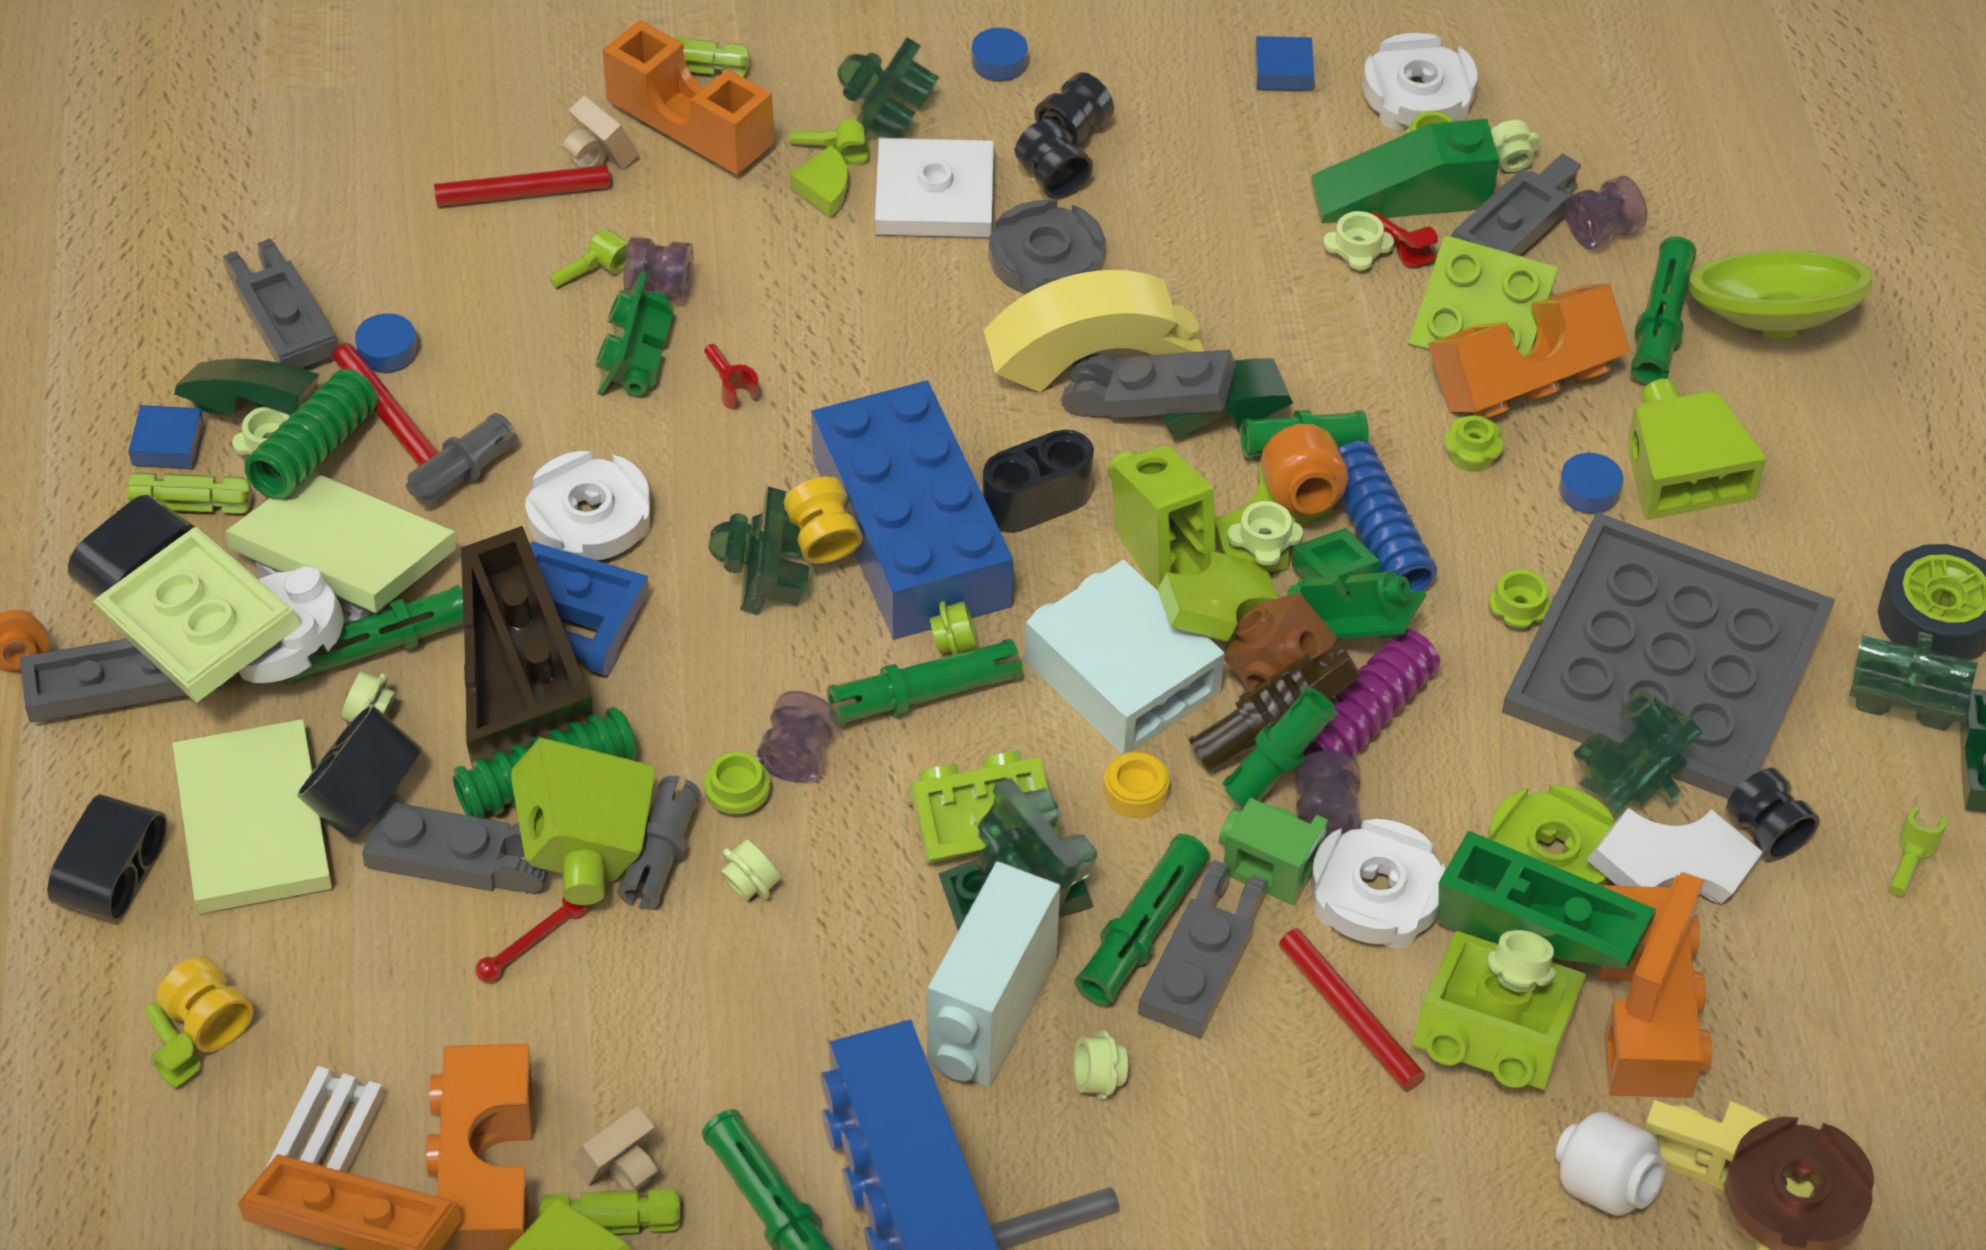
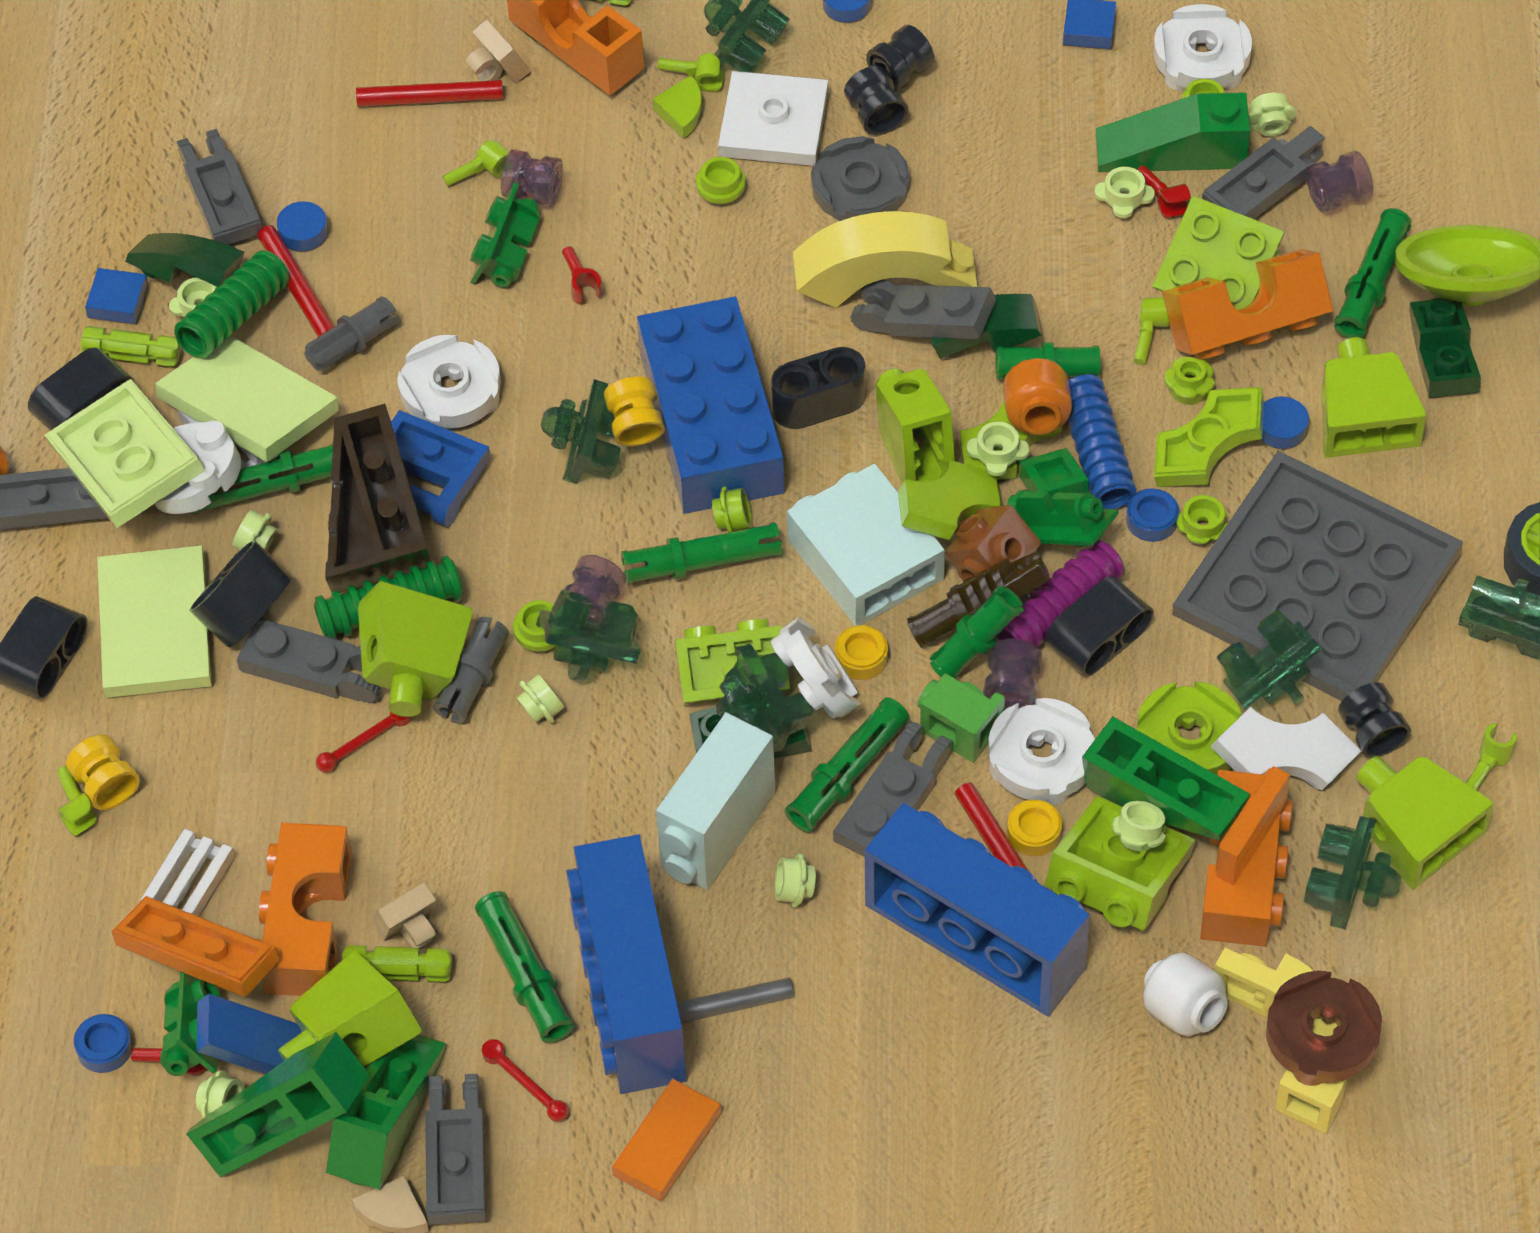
camera: 10 degrees right, 5 degrees up
(778, 780) = (588, 643): none -> clear green hips
(883, 258) = (720, 180): none -> lime plate
(1103, 820) = (825, 679): none -> white plate
(1339, 1078) = (976, 908): none -> blue brick
(1384, 976) = (1034, 827): none -> yellow tile
(1417, 374) = (1152, 315): none -> lime hand
(1421, 730) = (1099, 625): none -> black beam
(1458, 598) = (1152, 515): none -> blue tile
(1493, 521) = (1191, 451): none -> lime tile
(1759, 385) = (1444, 347): none -> dark green slope
(1774, 1020) = (1338, 891): none -> clear green hips
(1851, 922) = (1422, 815): none -> lime torso

